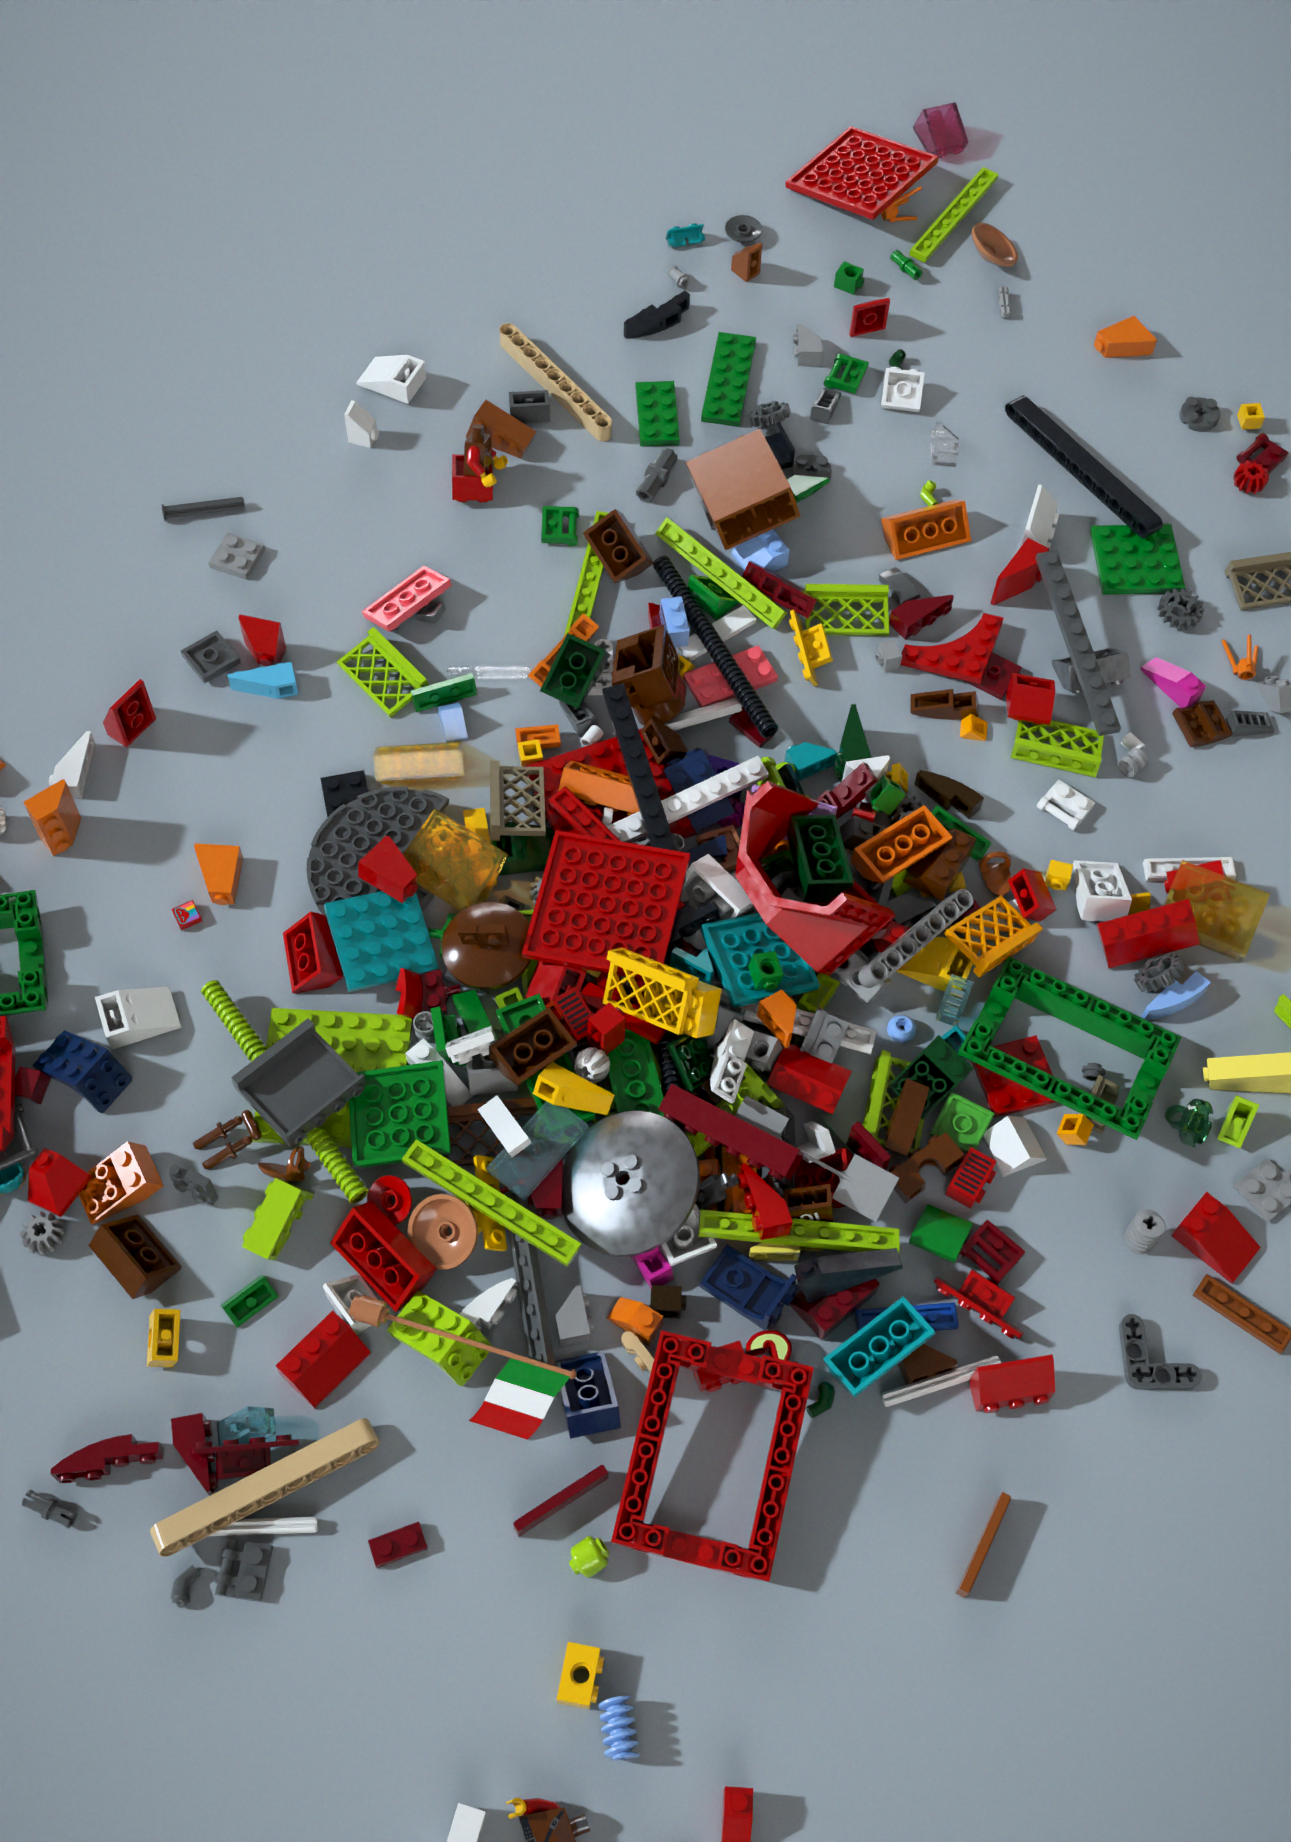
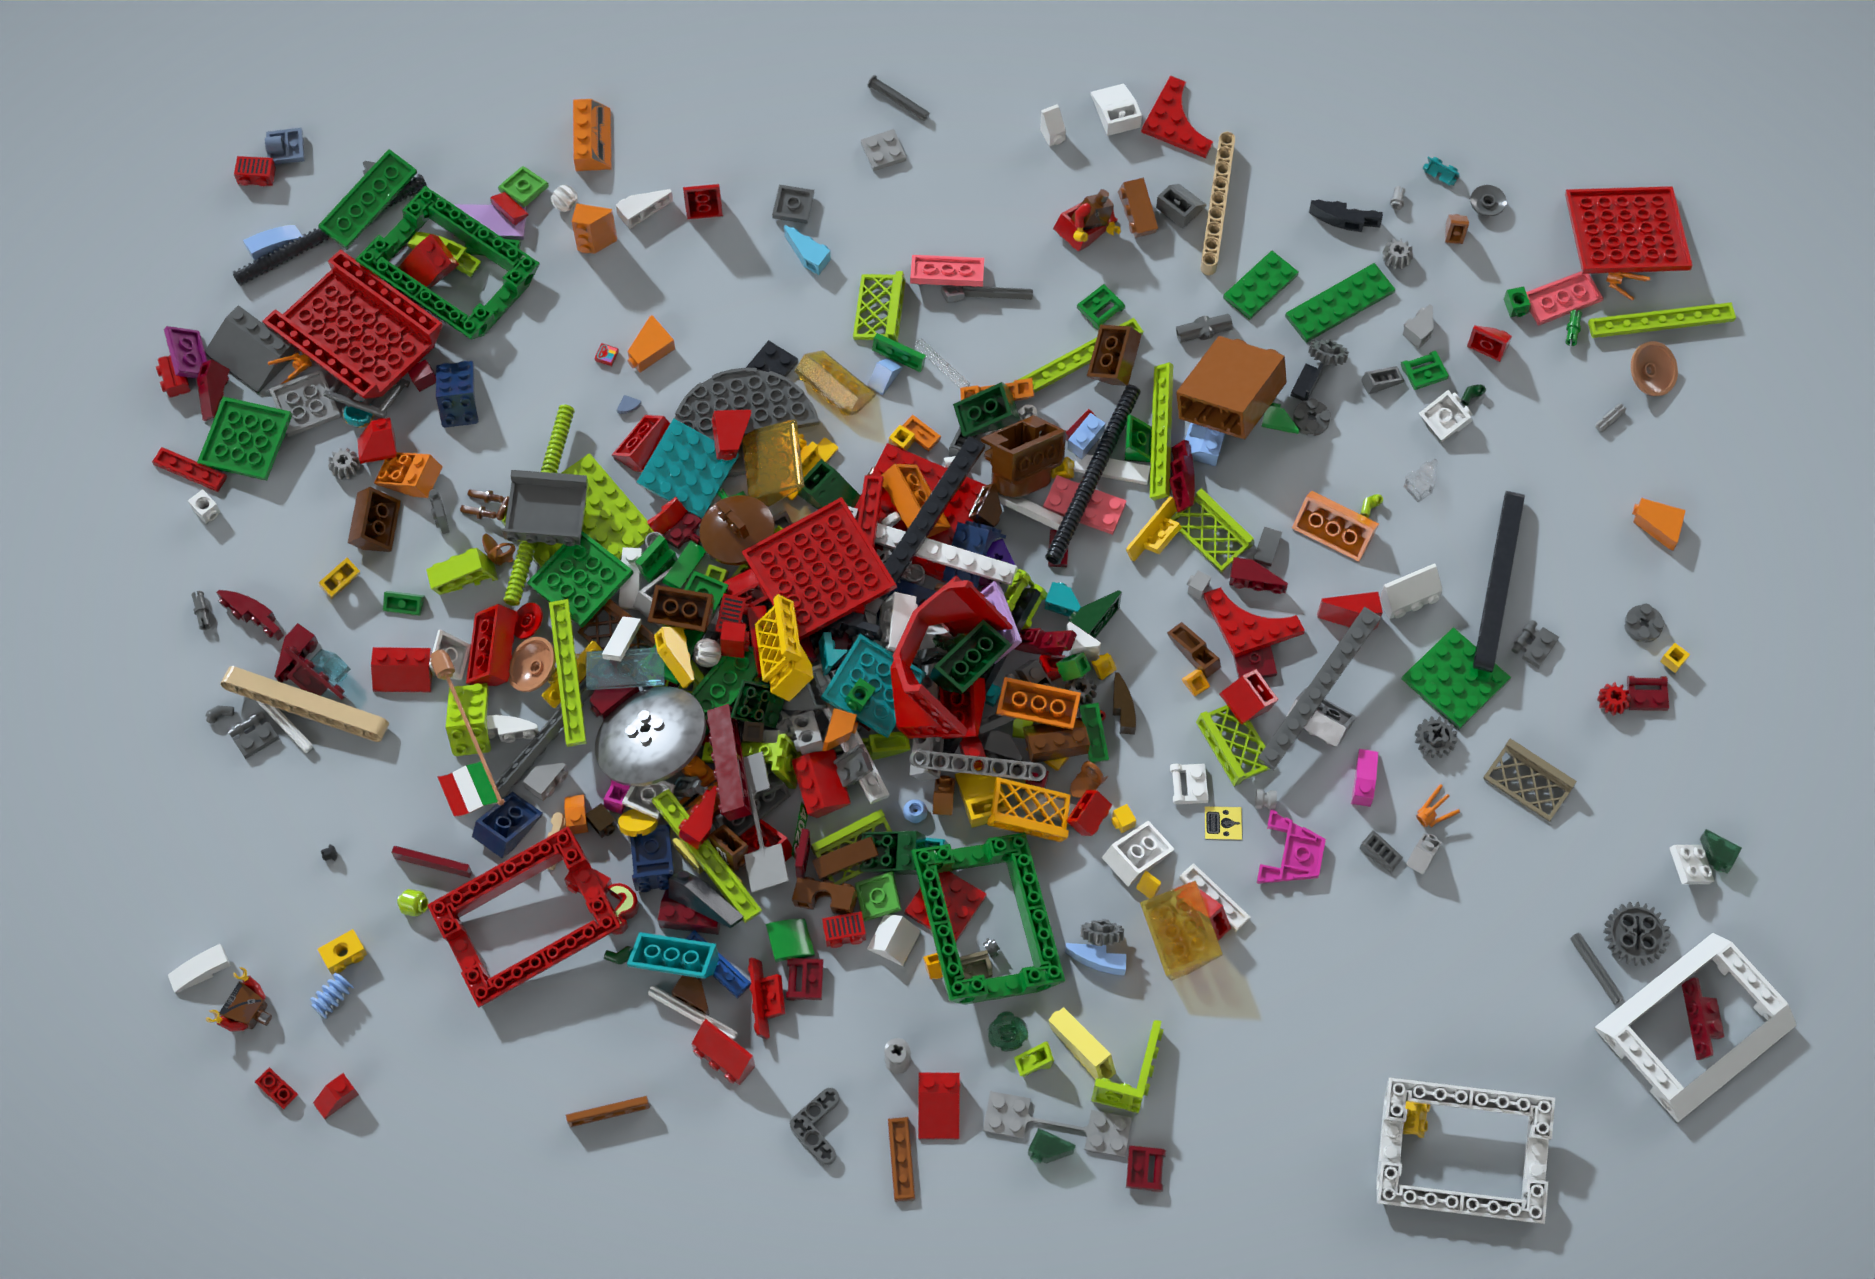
camera: 50 degrees right, 5 degrees up
(136, 1014) = (515, 387): white slope -> none
(257, 937) = (628, 404): none -> sand blue tile
(263, 639) = (830, 223): red slope -> none
(397, 1544) = (334, 799): dark red plate -> none
(448, 358) = (1170, 124): none -> red plate
(453, 1598) = (329, 853): none -> black piece
(465, 1047) = (653, 575): white plate -> none
(467, 581) = (998, 292): none -> dark grey axle
(498, 805) = (838, 449): dark tan fence -> none
(700, 1271) = (636, 822): none -> yellow tile
(728, 312) = (1397, 254): none -> light grey gear
(729, 1061) = (775, 724): white slope -> none
(819, 1142) = (780, 822): white panel -> none
(873, 251) = (1562, 297): none -> coral tile
(911, 993) = (943, 795): none -> dark orange slope
(941, 130) = (1734, 249): clear pink slope -> none
(948, 1013) = (956, 826): clear light blue slope -> none
(1122, 810) = (1223, 823): none -> sticker
(1131, 741) = (1283, 789): white hinge -> none
(1148, 933) = (1122, 902): red slope -> none
(1159, 489) = (1540, 647): none -> dark grey plate
(1202, 723) = (1349, 821): reddish brown slope -> none
(1203, 776) = (1301, 853): none -> dark pink wing

